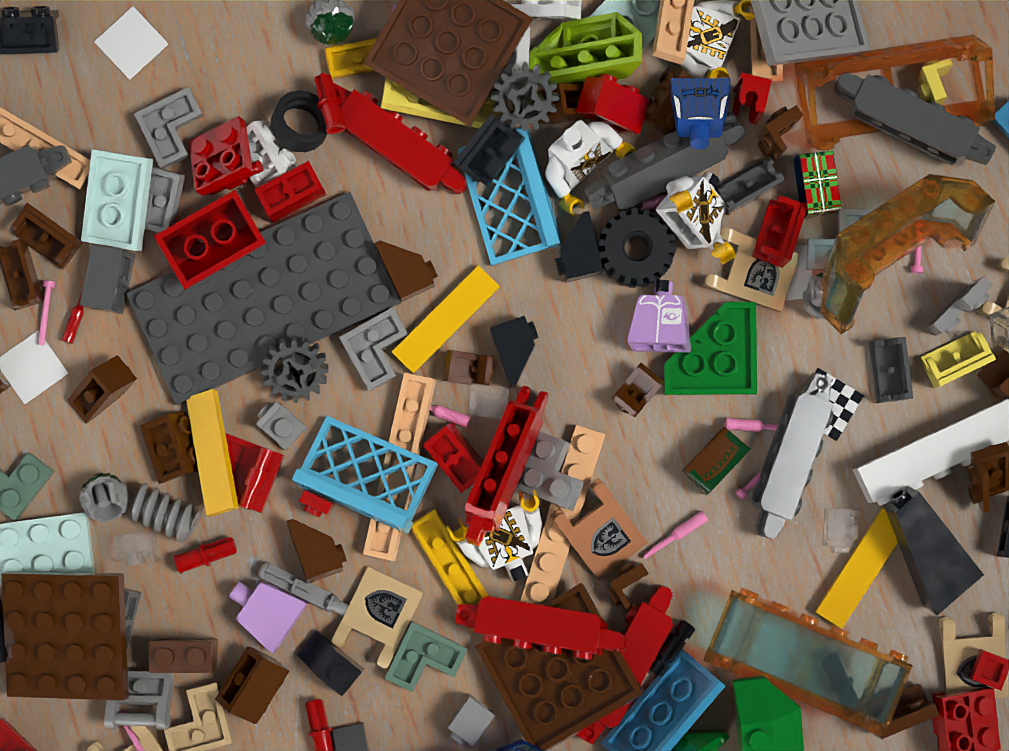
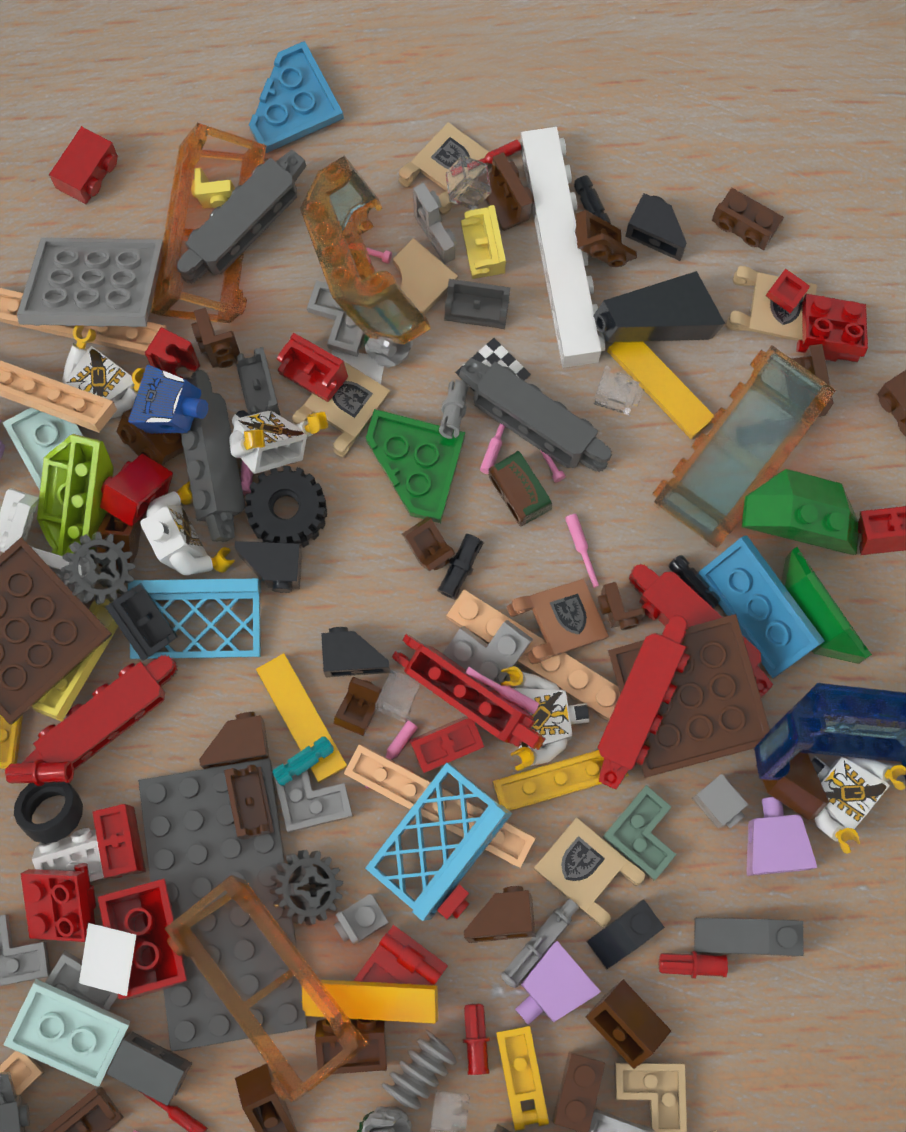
camera: 75 degrees left, 10 degrees down
(184, 215) = (107, 959): none -> white sticker
(185, 602) = (522, 1076): none -> yellow plate
(215, 277) = (183, 940): none -> clear orange windscreen
(353, 296) = (249, 802): none -> reddish brown hinge
(404, 333) = (302, 761): none -> teal axle
(513, 500) = (506, 691): none -> bright pink piece
(626, 425) = (460, 566): none -> black pin
(660, 322) = (367, 502): lavender torso -> none
(776, 377) = (453, 409): none -> light grey pin
(817, 183) = (274, 320): piece -> none
(902, 311) = (422, 275): none -> tan tile

